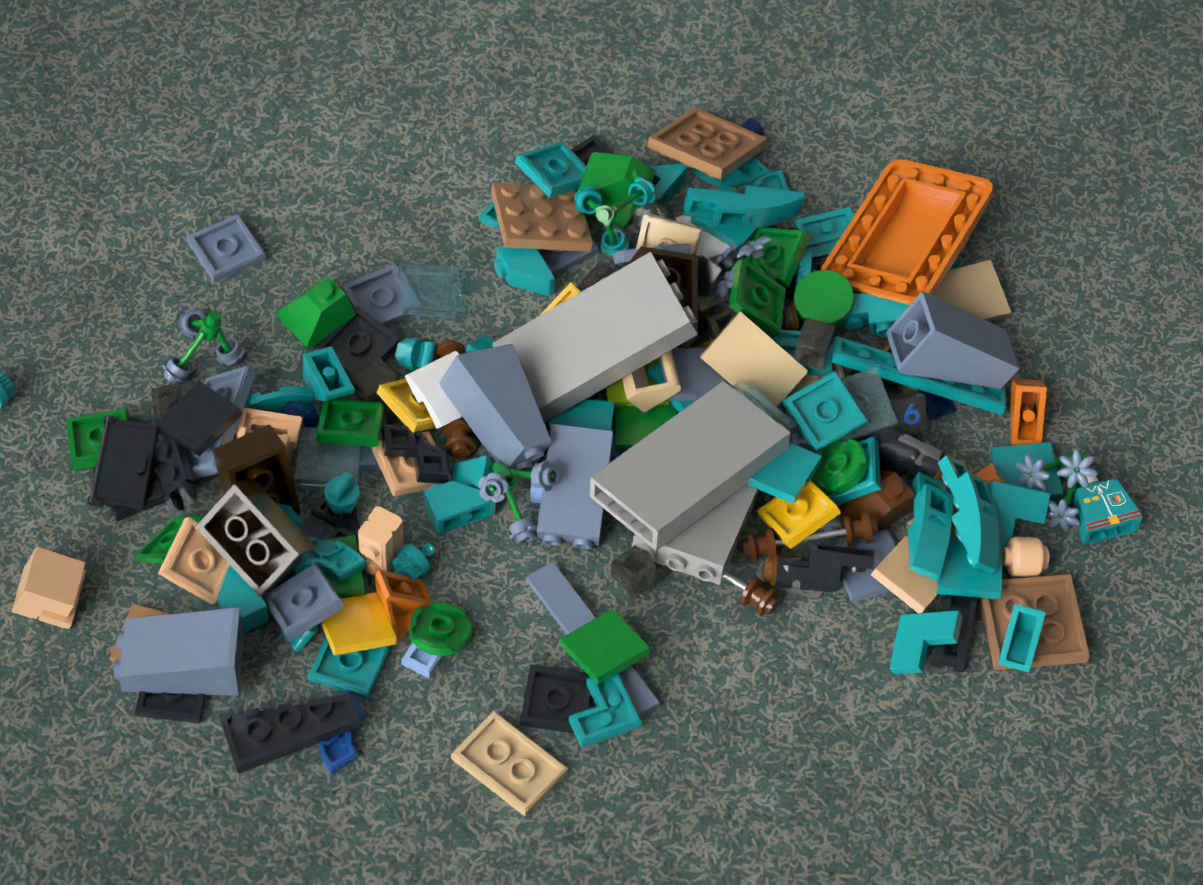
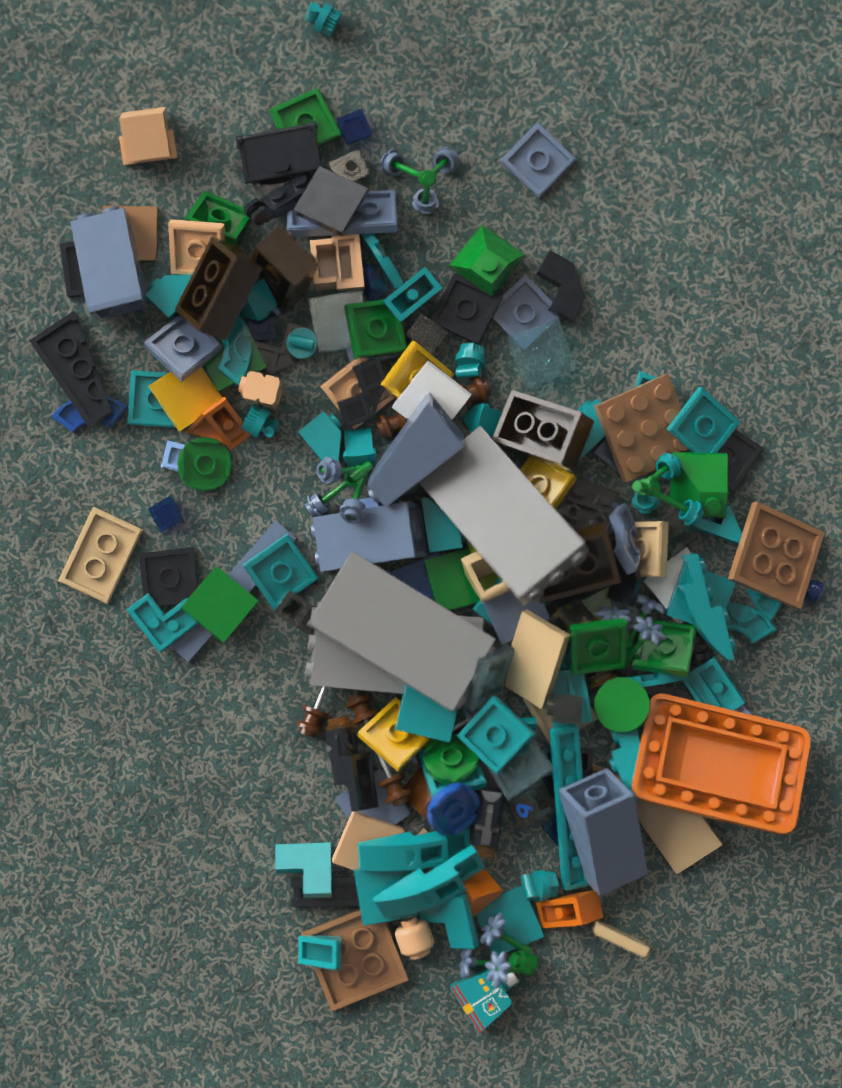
camera: 75 degrees right, 30 degrees up
(123, 394) = (354, 127): none -> clear blue plate
(352, 255) = (563, 275): none -> black tile
(483, 681) = (166, 514): none -> clear blue slope
(514, 292) = (543, 430): none -> dark brown brick
(585, 584) = (280, 569): none -> teal tile
(895, 472) = (453, 809): none -> blue tile
(995, 430) = (540, 885): none -> teal piece
(1068, 365) = (620, 938): none -> tan tile

